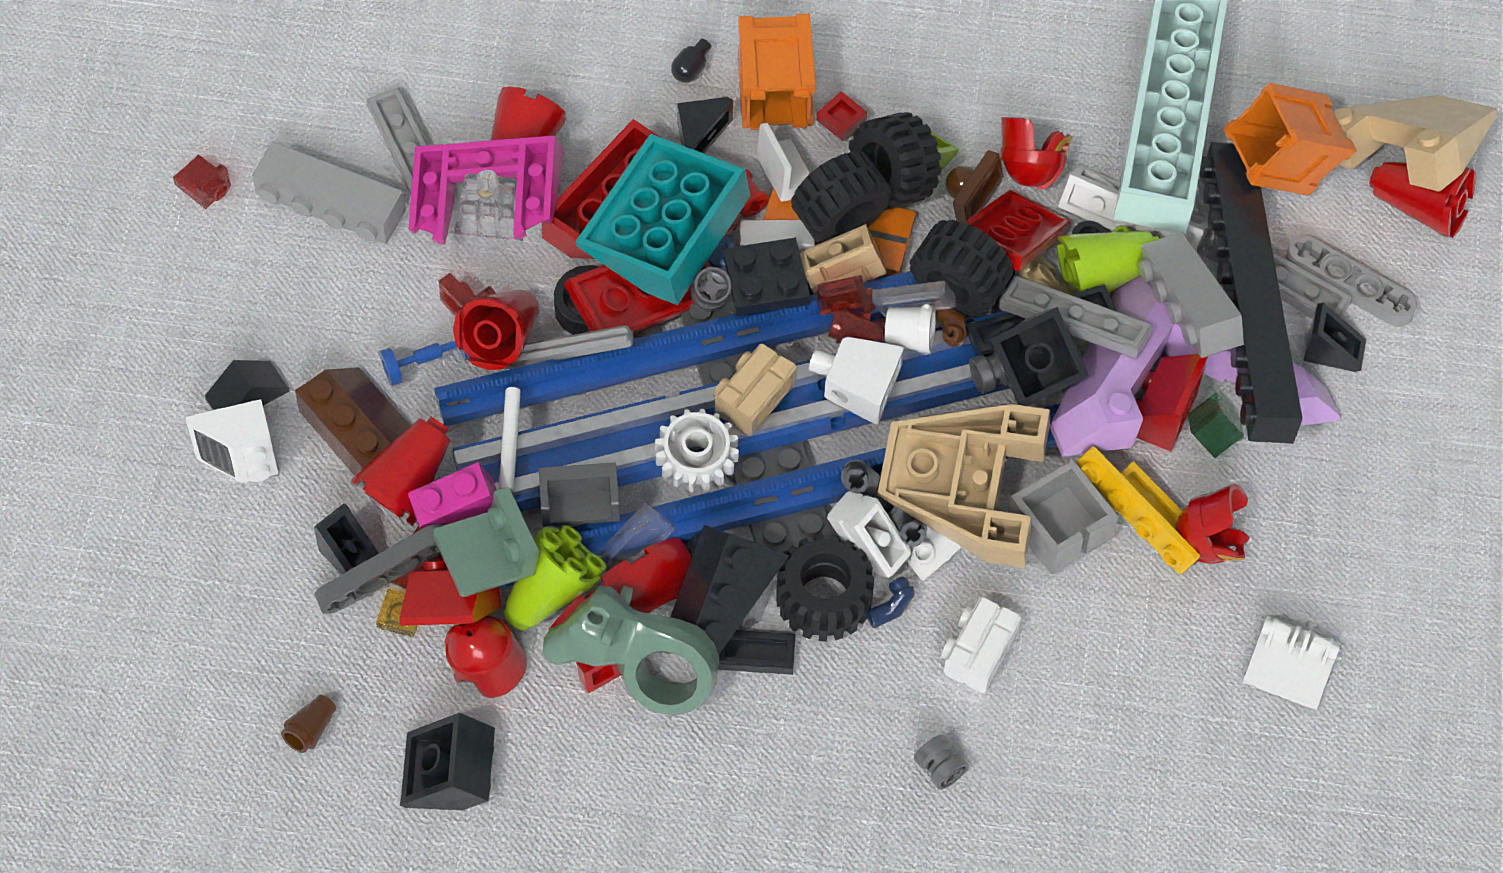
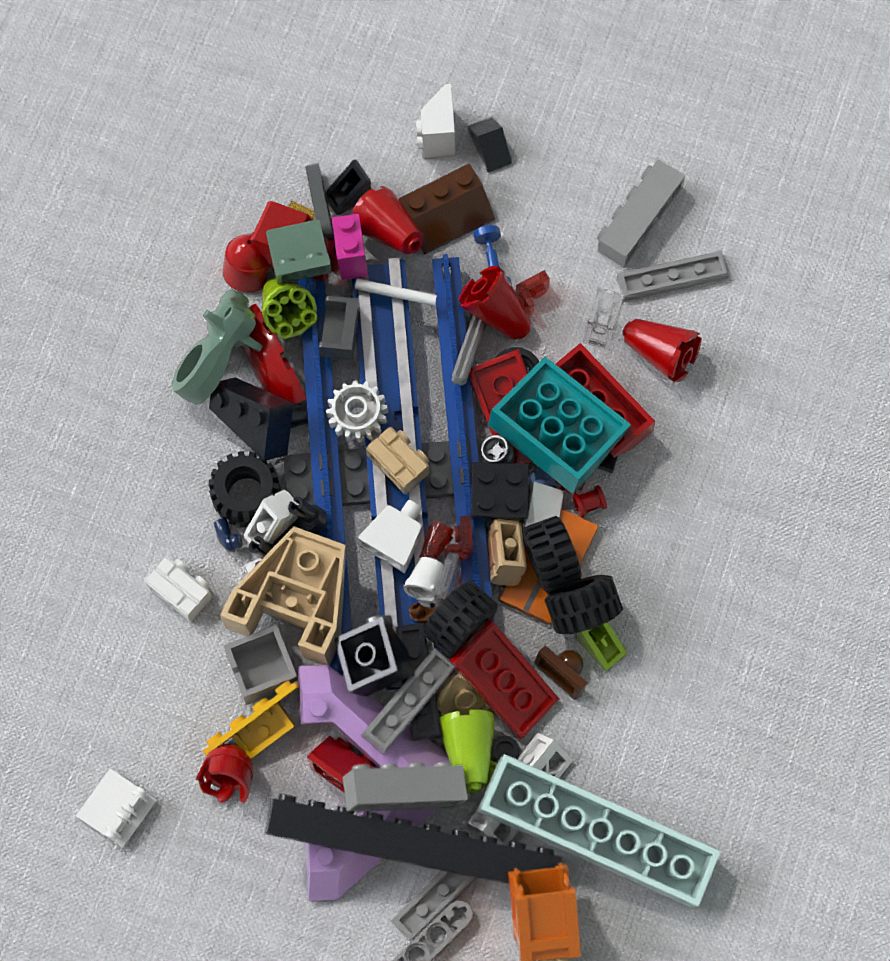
camera: 105 degrees right, 10 degrees up
(203, 181) = (669, 134): clear red bracket -> none
(308, 724) = (225, 149): reddish brown cone -> none
(438, 168) = (625, 341): dark pink wedge -> none
(448, 764) = (173, 229): black slope -> none
(639, 532) = (305, 366): clear tile -> none
(690, 61) = (718, 484): black cylinder -> none
(703, 121) = (653, 477): black slope -> none
(759, 652) = (212, 442): black tile -> none
(776, 71) = (687, 537): orange container -> none
(780, 162) = (604, 531): white panel -> none
(841, 116) = (647, 585): red plate -> none
(941, 761) = (98, 542): flat silver wheel -> none
(1025, 163) = (581, 713): red helmet -> none
(1215, 425) = (321, 792): clear green panel -> none
(1333, 341) = (370, 914): black slope -> none

